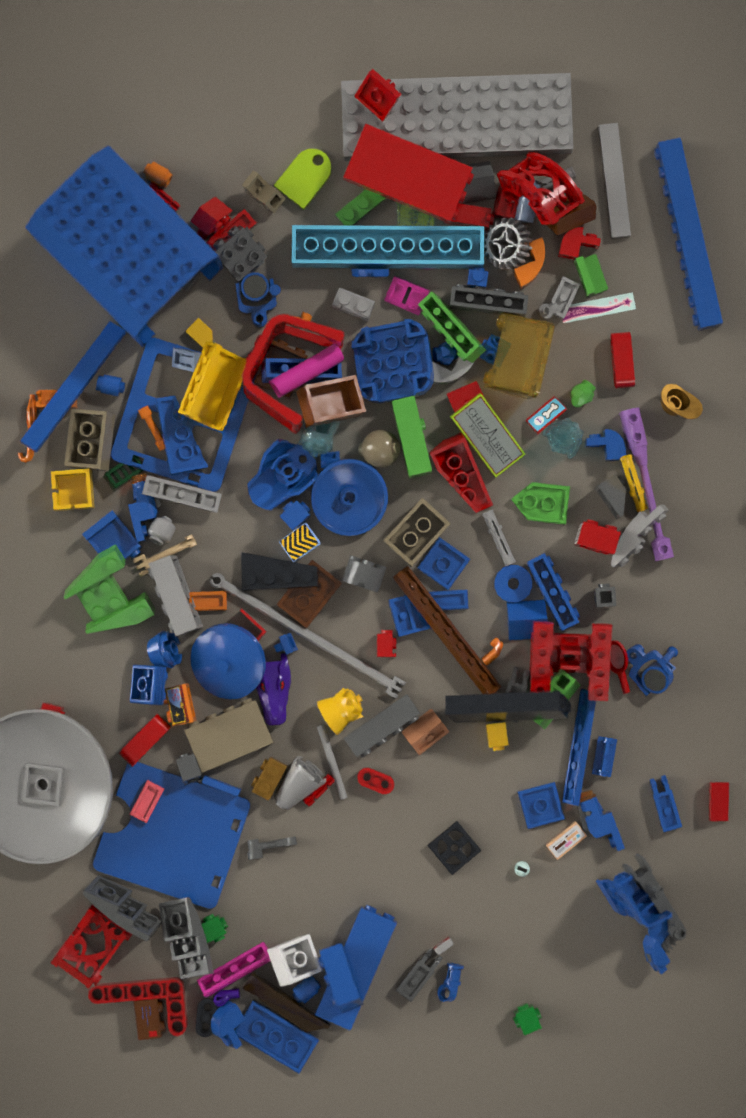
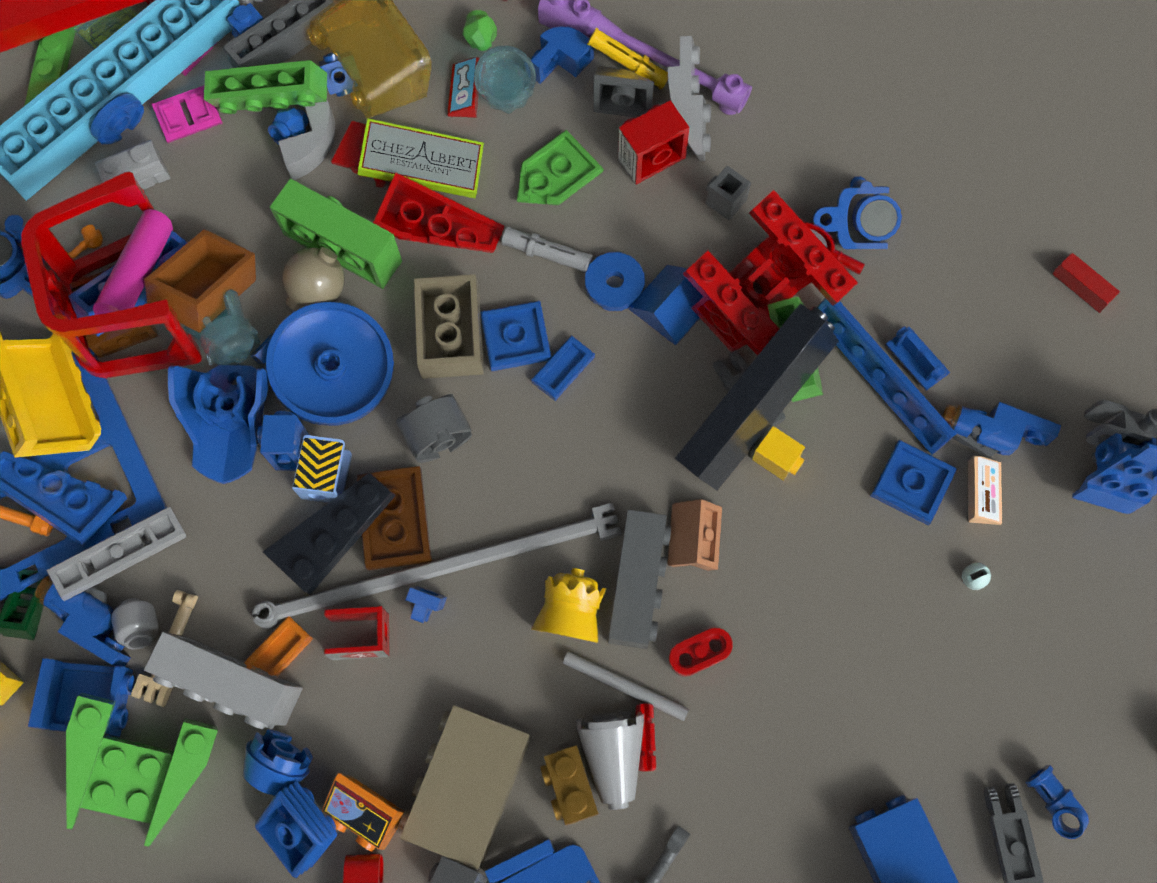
camera: 50 degrees left, 15 degrees down
(228, 661) = (370, 693): blue dish -> none
(274, 690) = (458, 669): dark purple animal -> none
(385, 644) = (544, 483): red brick -> none
(393, 361) = (234, 180): blue tile -> none
(406, 616) = (535, 428): blue wing -> none
(443, 945) = (998, 765): light grey tile -> none
(446, 631) = (592, 398): reddish brown plate -> none
(460, 843) = (876, 657): black piece -> none
(494, 653) = (676, 370): orange arm -> none
(552, 591) = (662, 239): blue brick -> none
(665, 806) = (1040, 340): blue hinge -> none

